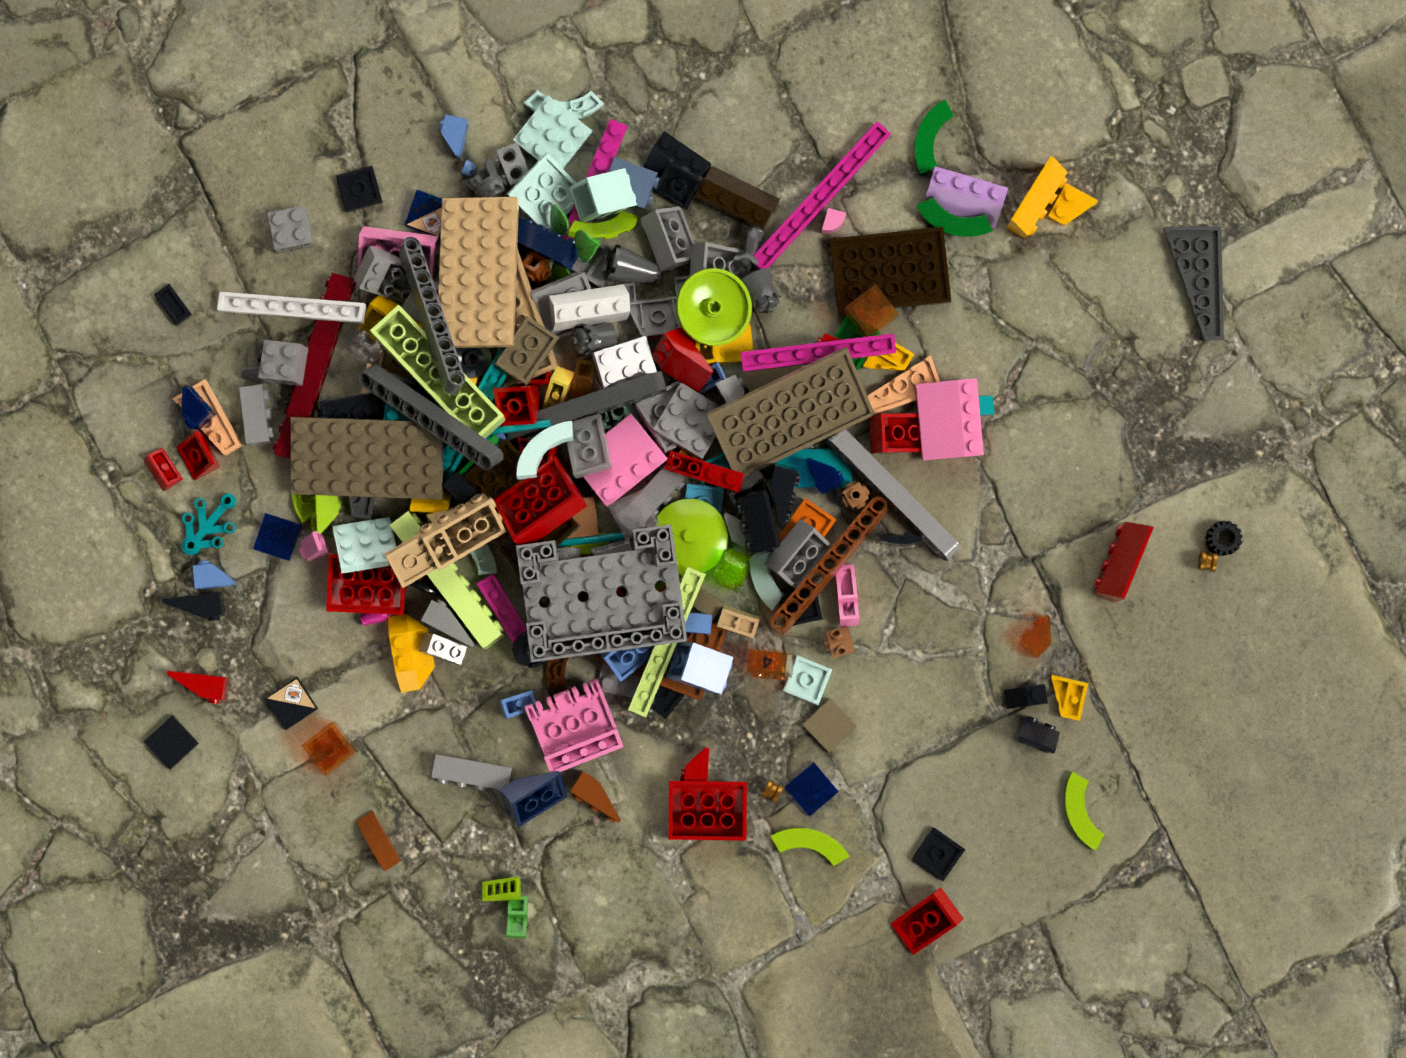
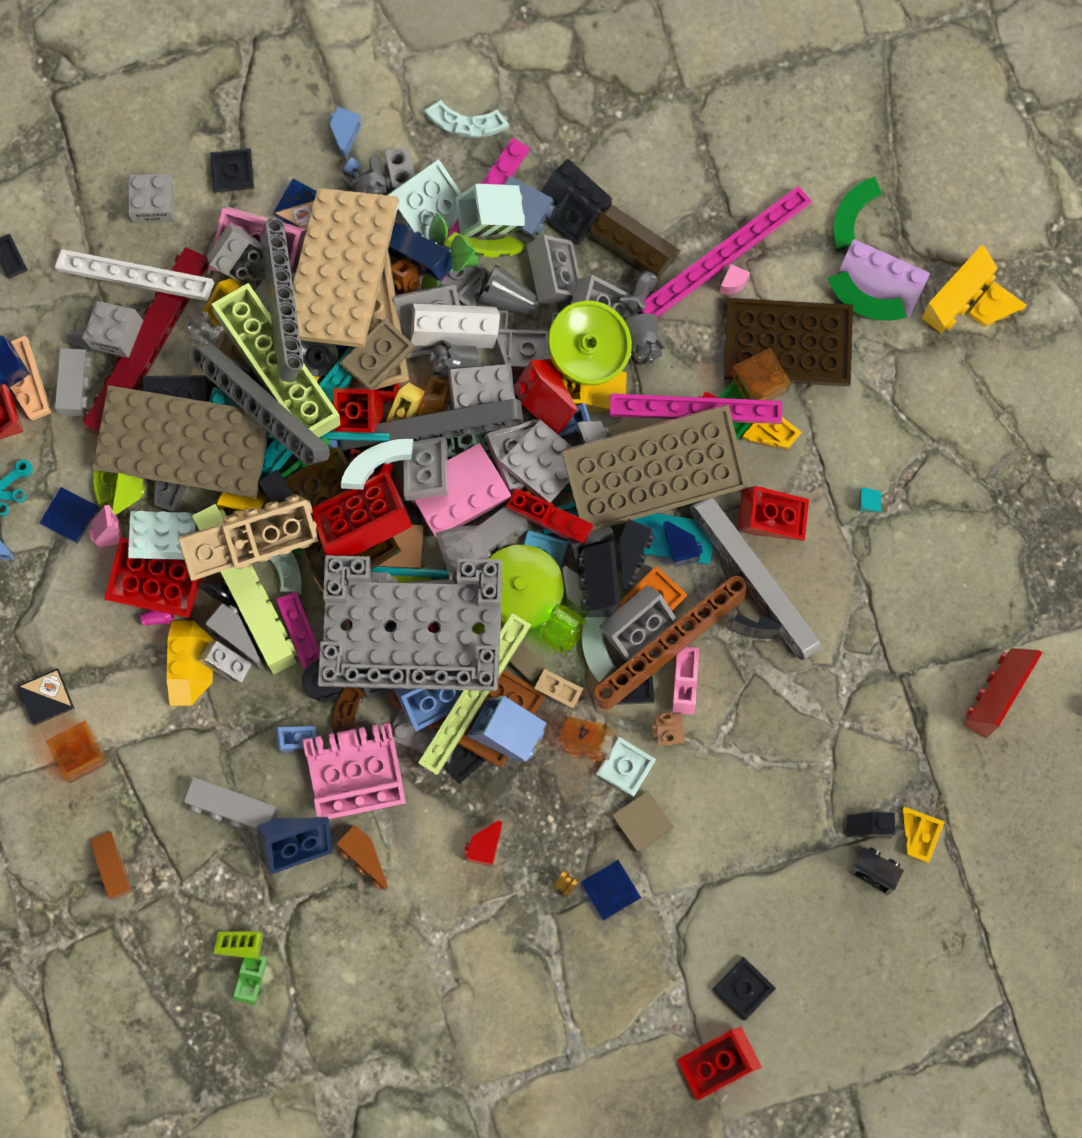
camera: 10 degrees right, 10 degrees down
(553, 132) = (451, 142): light aqua plate -> none
(699, 623) = (514, 681): medium blue slope -> none
(707, 810) = (488, 892): red slope -> none
(810, 839) = (602, 947): lime tile -> none
(851, 502) = (709, 579): medium nougat brick -> none
(902, 388) = (793, 466): light nougat wing -> none
(949, 419) = (829, 506): bright pink slope -> none
(1037, 638) = (895, 762): clear orange slope -> none
(1077, 813) = (911, 968): lime tile -> none

